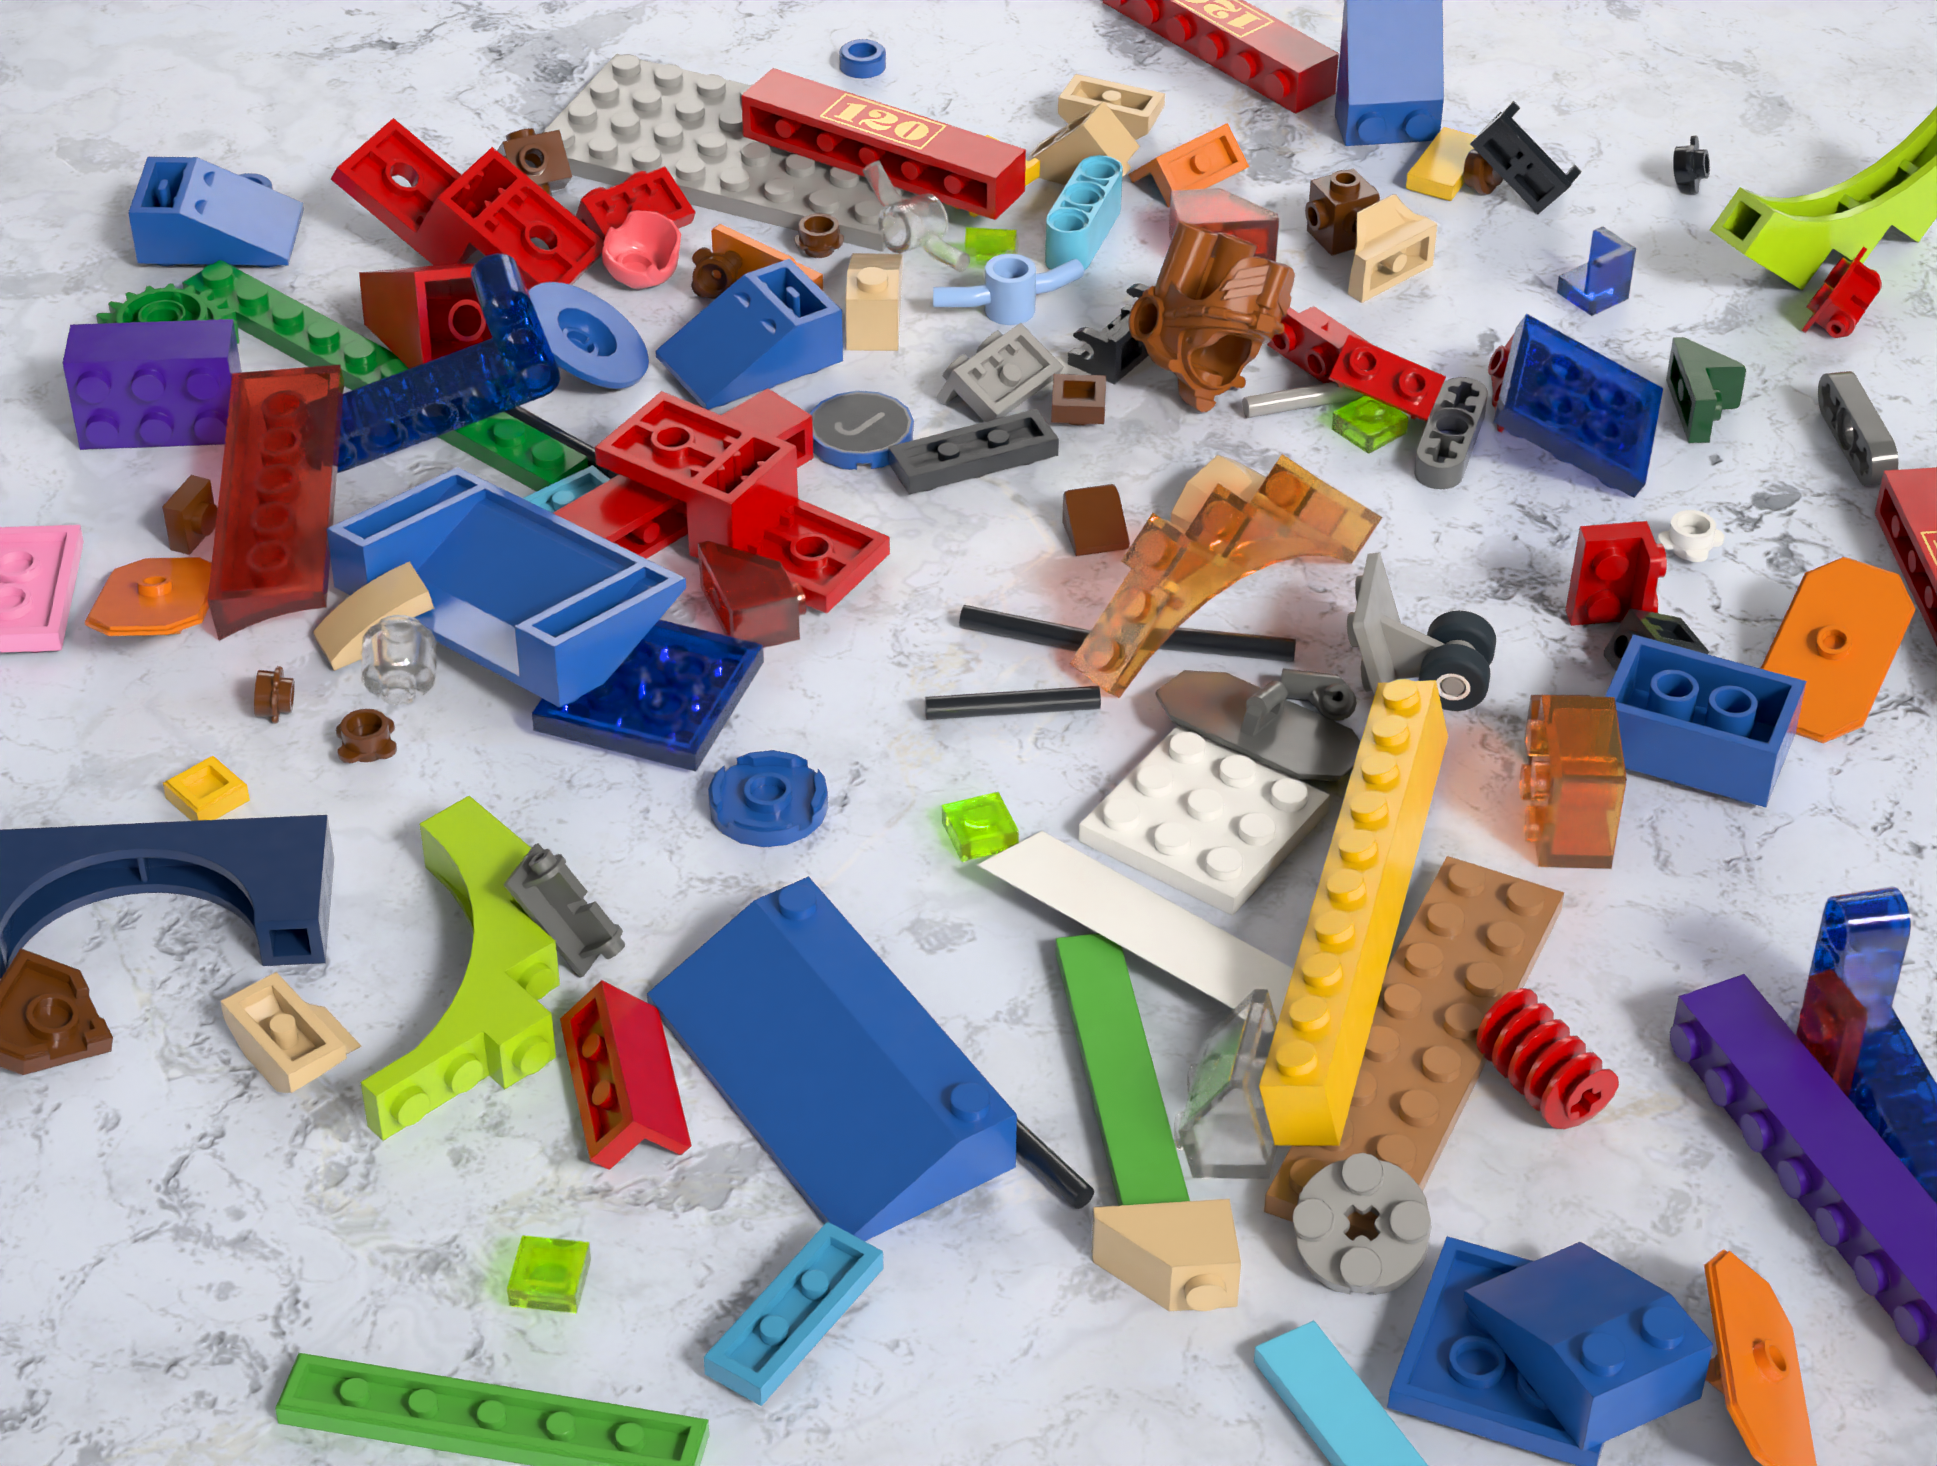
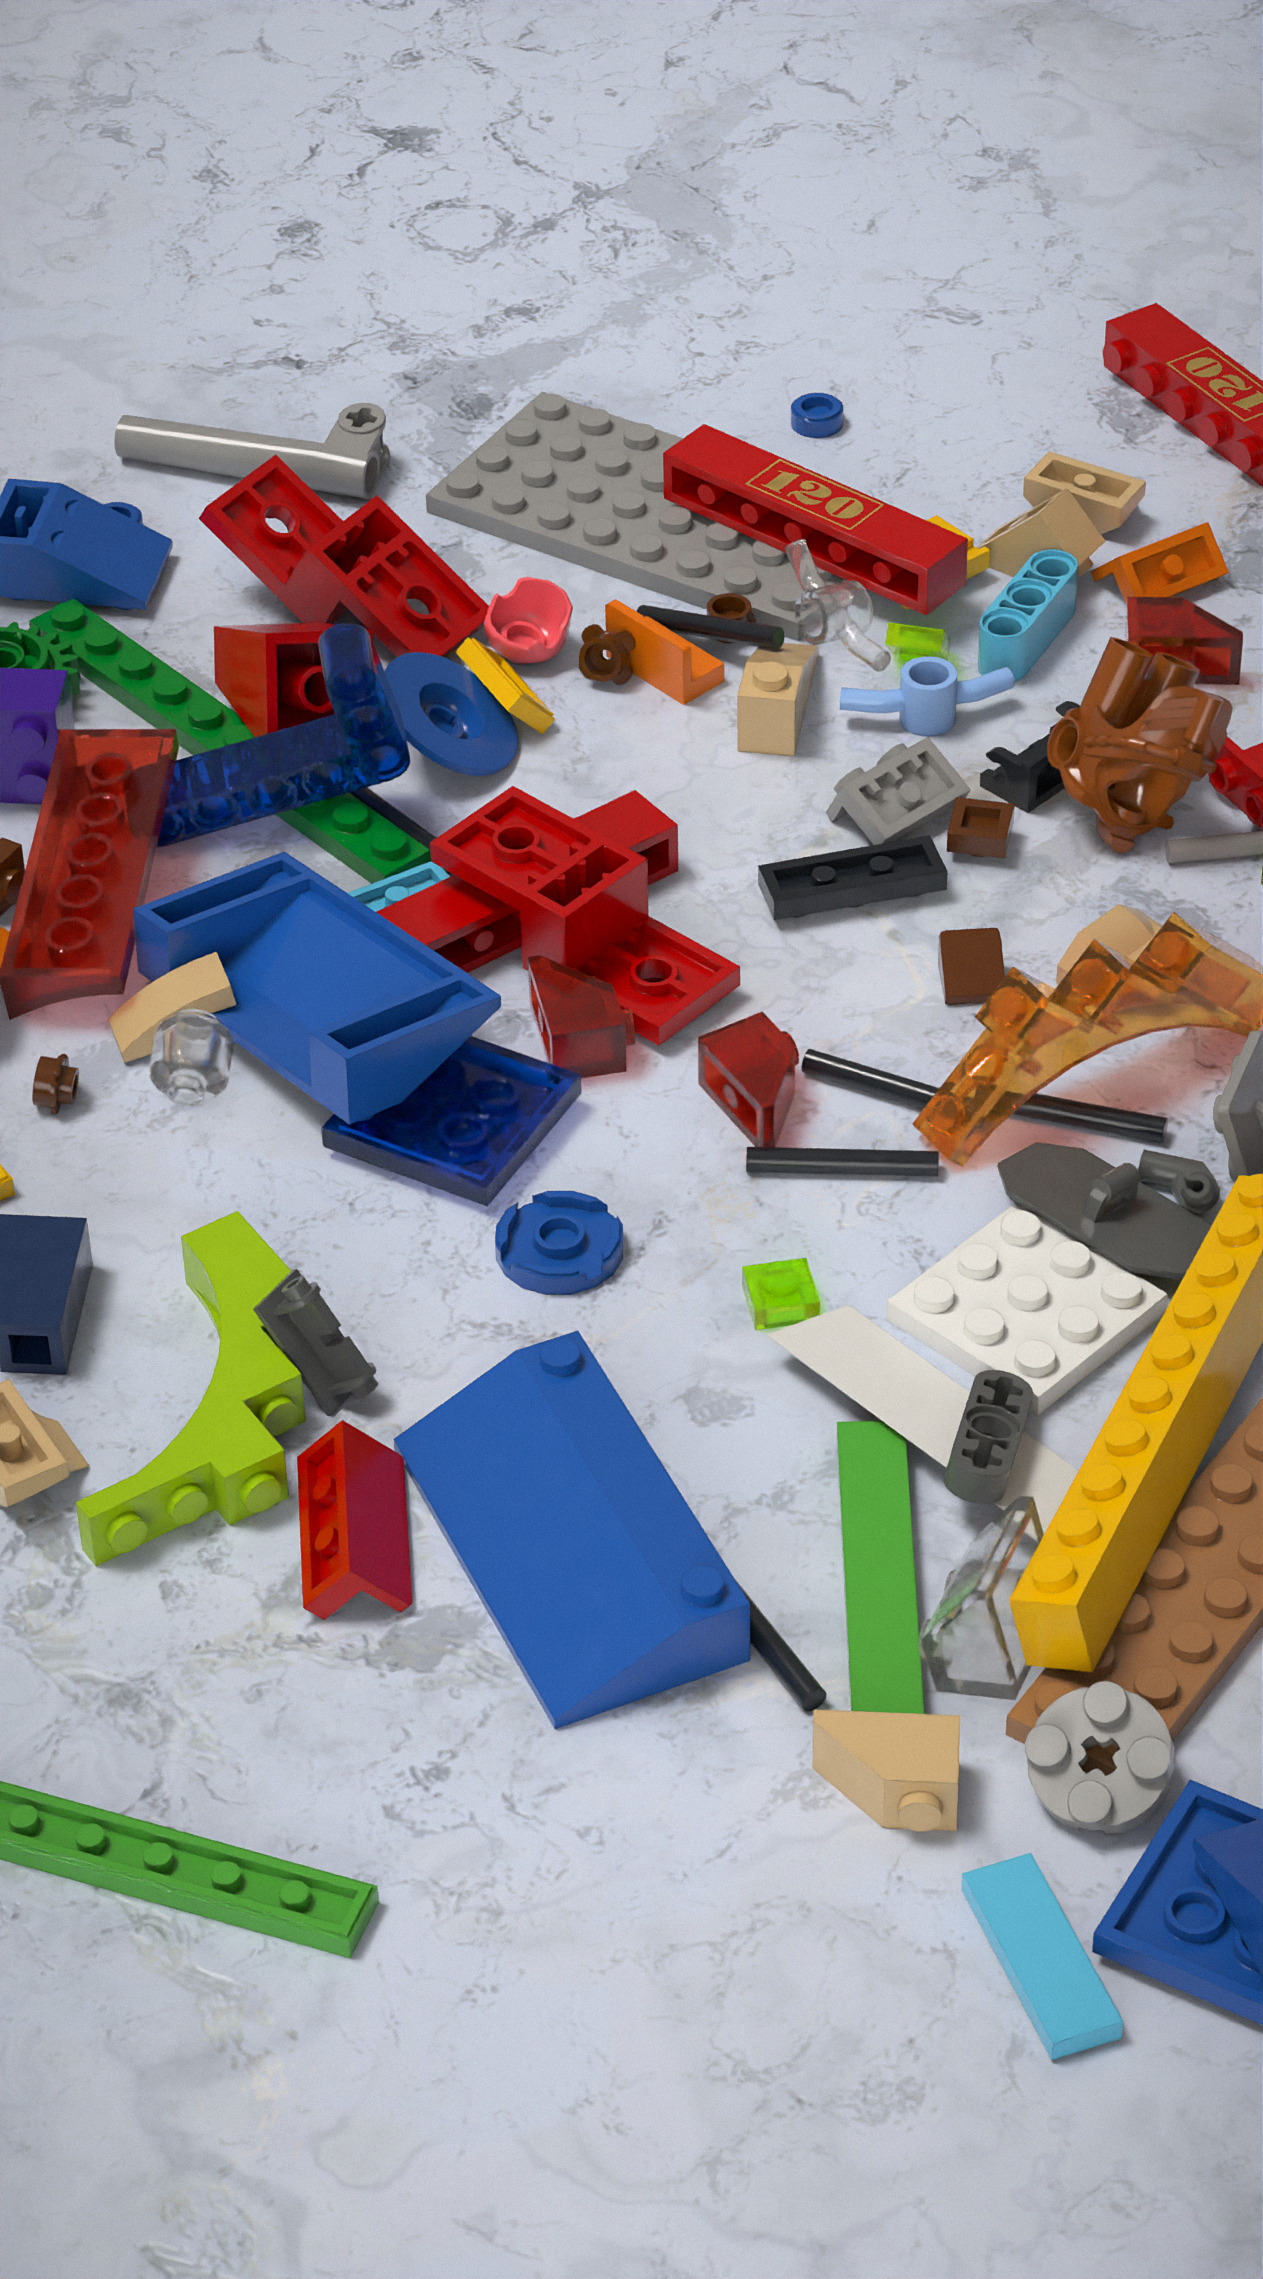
camera: 10 degrees right, 0 degrees up
(365, 736) = (144, 1137): reddish brown plate -> none
(449, 127) = (342, 465): none -> light grey axle
(539, 157) = (437, 502): reddish brown brick -> none
(549, 1274) = (240, 1720): clear neon green plate -> none
(629, 305) = (506, 684): none -> yellow tile
(641, 191) = (539, 556): red bracket -> none
(756, 336) = (635, 730): blue slope -> none
(793, 1313) = (485, 1787): dark azure plate -> none
(814, 243) = (716, 627): none -> black bar
(859, 428) = (731, 840): tile -> none
(915, 632) = (750, 1075): none -> clear red slope
(1198, 938) = (993, 1451): none -> dark grey beam

